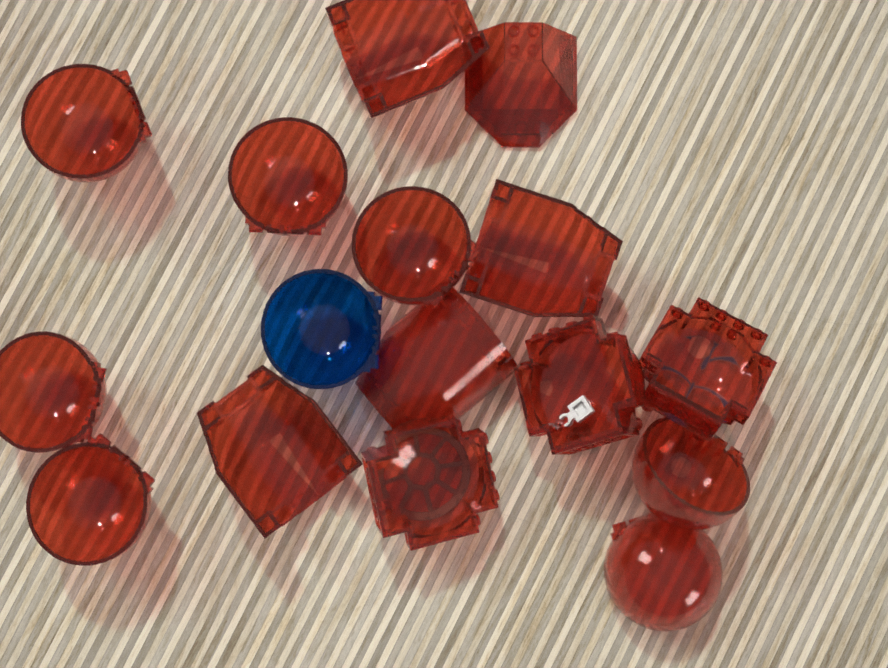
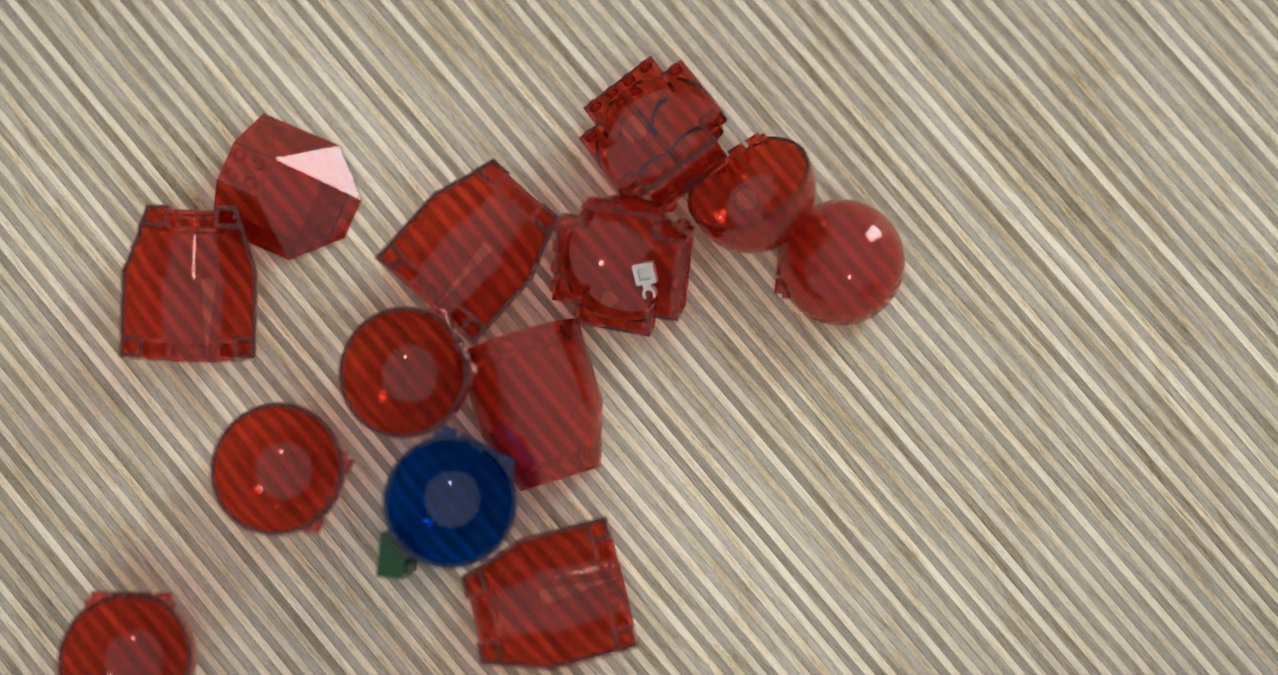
camera: 65 degrees left, 0 degrees up
(253, 301) = (393, 560): none -> dark green slope
(430, 481) = (651, 455): clear red windscreen -> none

